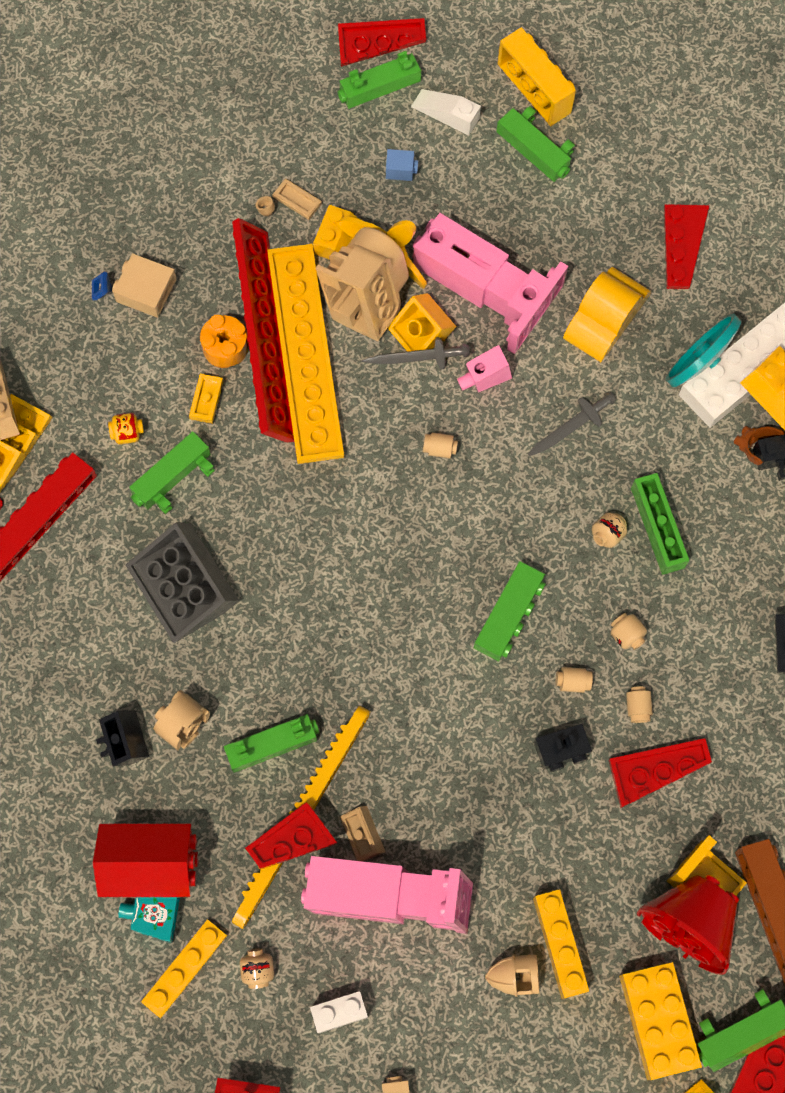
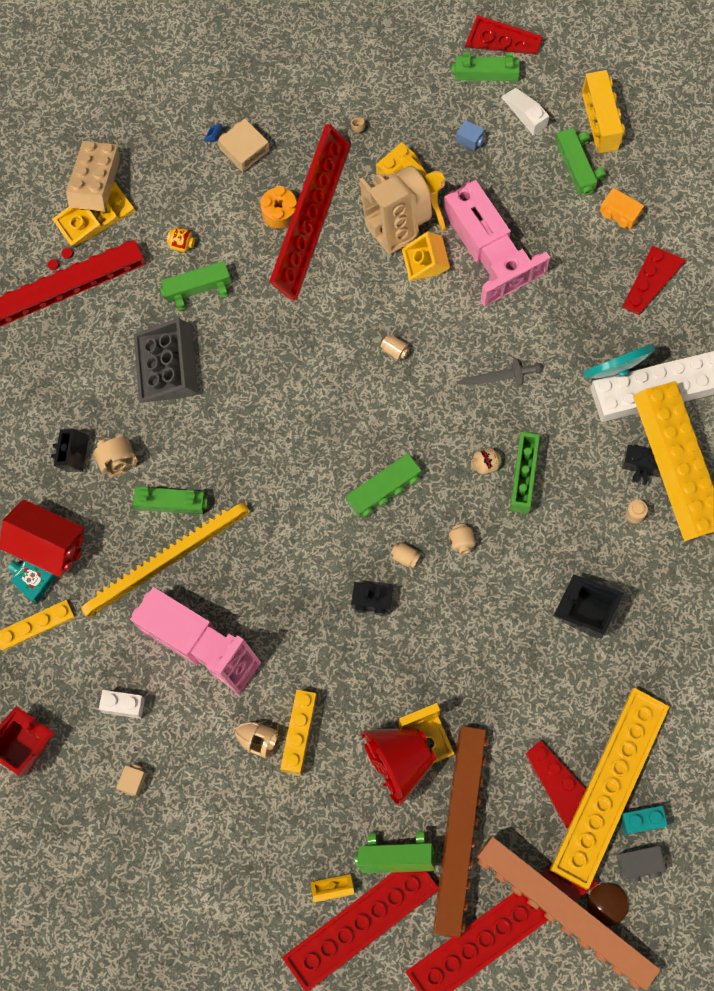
camera: 30 degrees right, 0 degrees up
(206, 398) = (247, 243): yellow plate -> none
(256, 969) = (81, 648): tan head -> none
(291, 838) = (147, 569): red wing -> none
(297, 199) = (383, 129): tan tile -> none
(305, 354) = (331, 243): yellow plate -> none
(362, 833) = (202, 592): tan slope -> none
(438, 353) = (426, 281): dark grey sword -> none
(494, 369) = (455, 308): bright pink torso -> none
(605, 313) = (565, 304): yellow brick -> none
(611, 177) = (621, 208): none -> light orange brick
(639, 705) = (443, 594): tan brick -> none
(651, 770) = (425, 643): red wing -> none
(660, 1021) = (341, 818): yellow brick -> none
(750, 436) = (622, 442): dark orange helmet -> none

